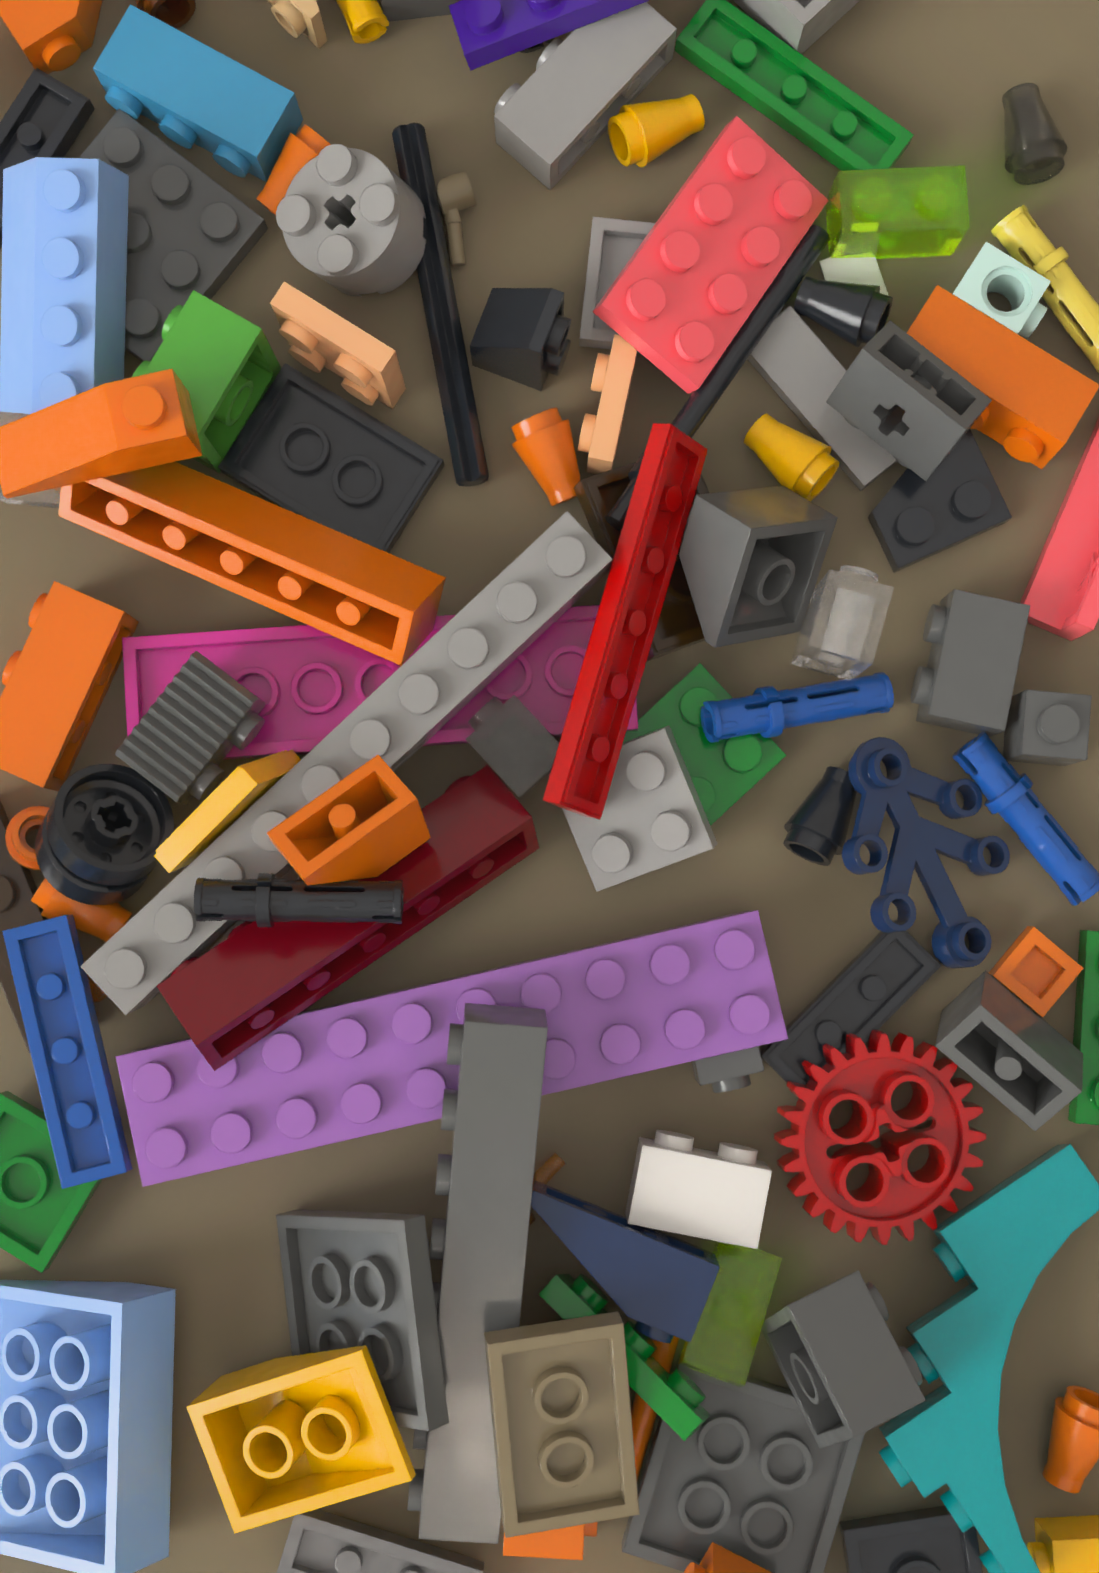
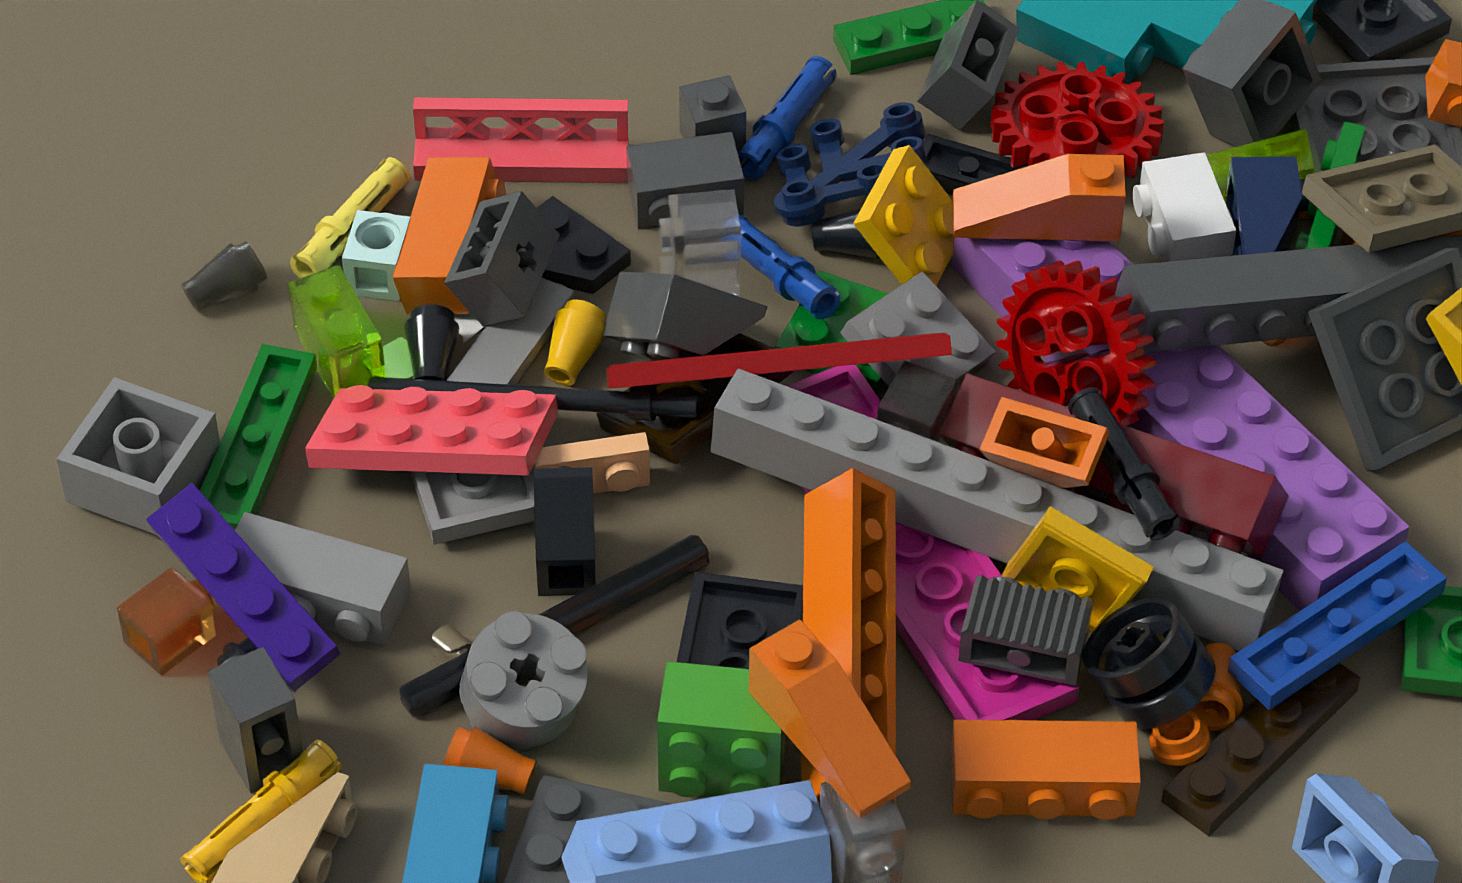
camera: 115 degrees left, 35 degrees down
(327, 340) = (643, 648): light nougat plate -> none
(501, 943) = (1066, 312): none -> red gear
(549, 453) = (649, 500): orange cone -> none
(652, 128) = (329, 517): yellow cone -> none
(719, 1002) = (1049, 200): none -> orange slope
(793, 870) = (908, 218): none -> yellow plate
(1036, 970) = (898, 78): orange plate -> none

